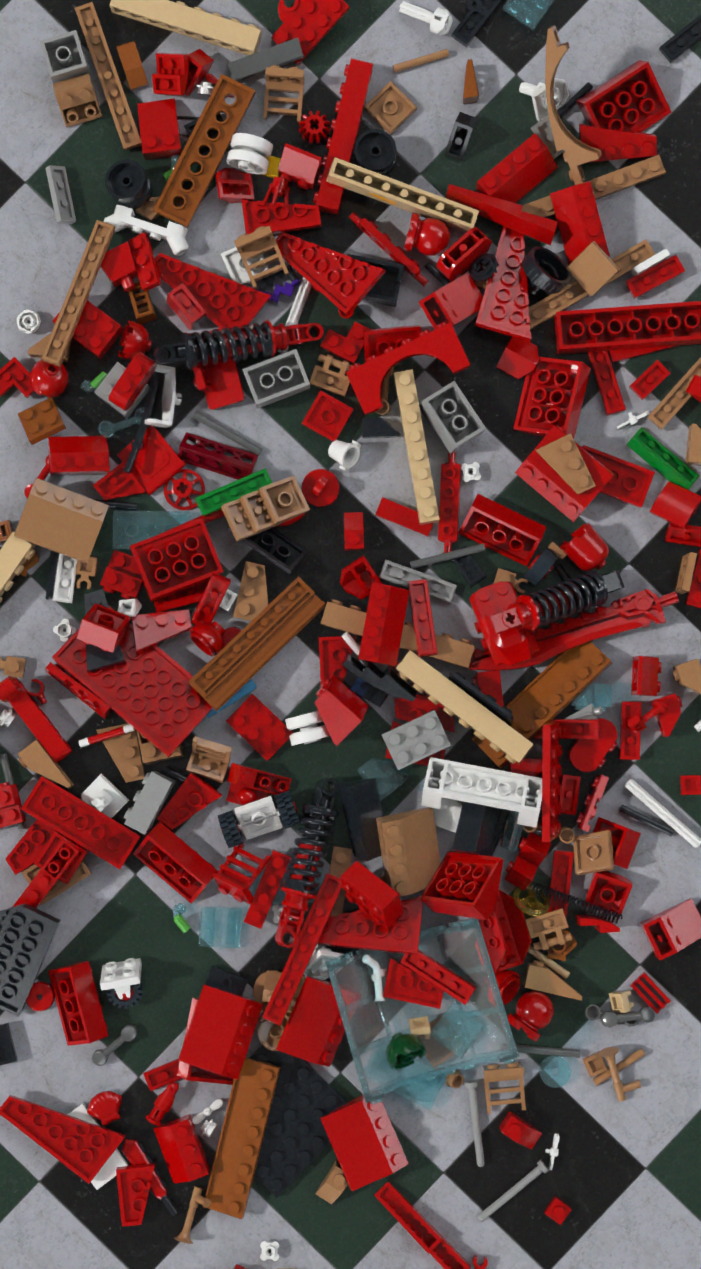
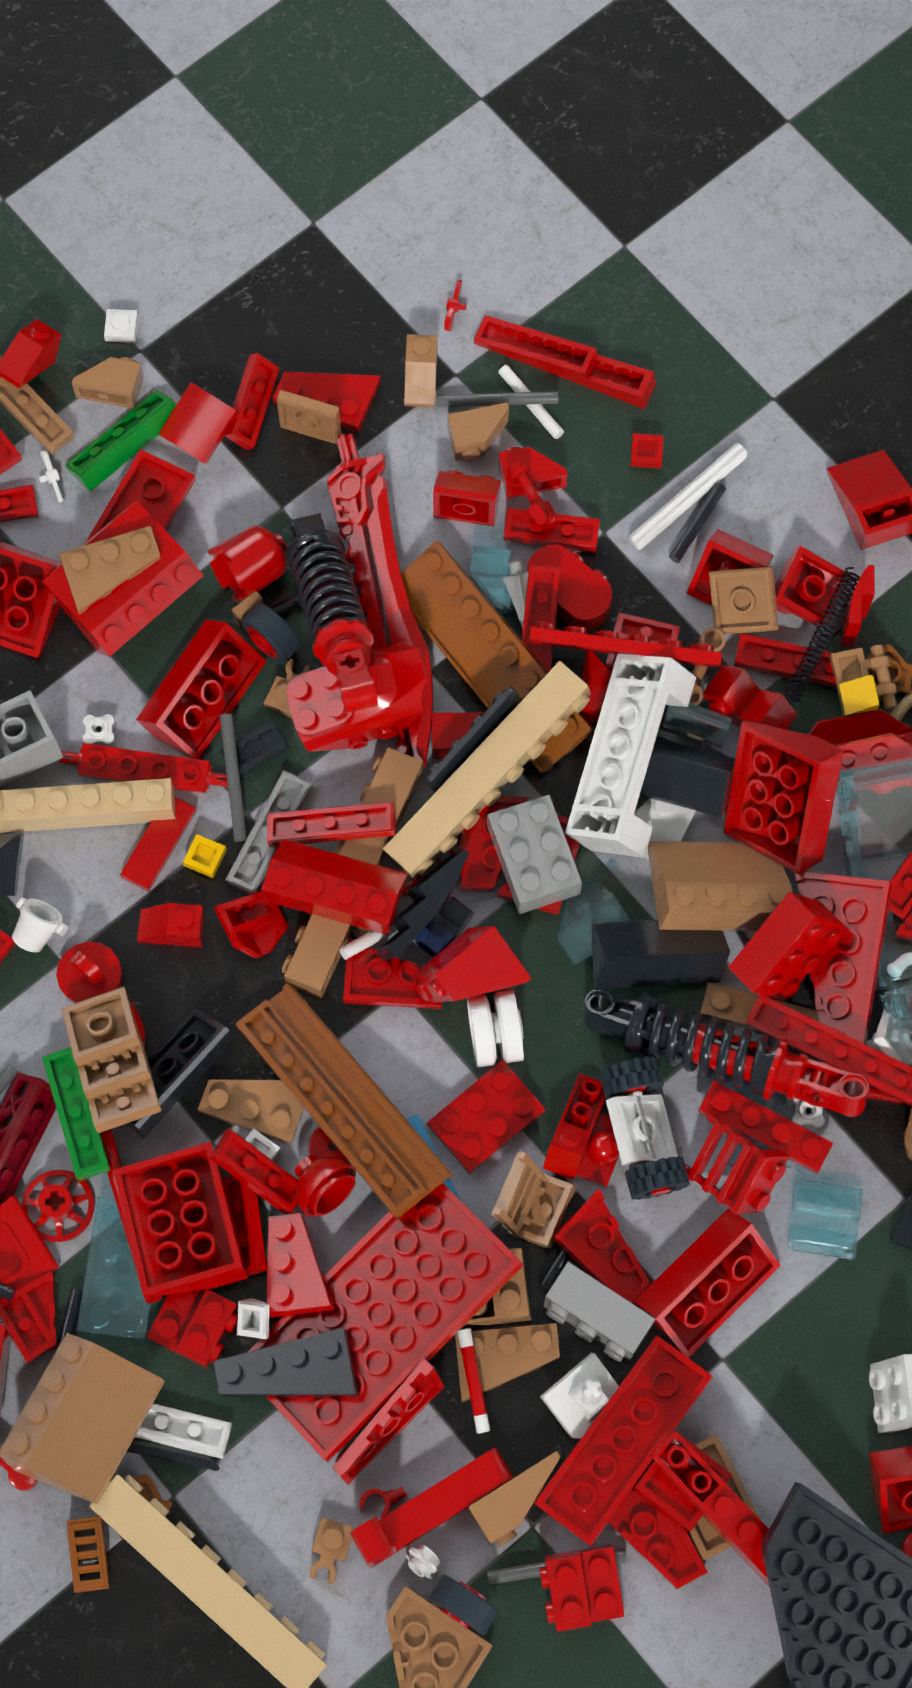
camera: 85 degrees left, 15 degrees down
(59, 630) = (268, 1438): white plate -> none
(86, 570) = (176, 1390): medium nougat plate -> none
(103, 627) = (283, 1356): red slope -> none
(178, 917) = (805, 1287): arm -> none
(398, 545) = (204, 856): none -> yellow plate
(531, 903) = (817, 706): clear yellow piece -> none
(536, 927) = (859, 695): none -> yellow slope
(598, 785) = (673, 600): red wing -> none

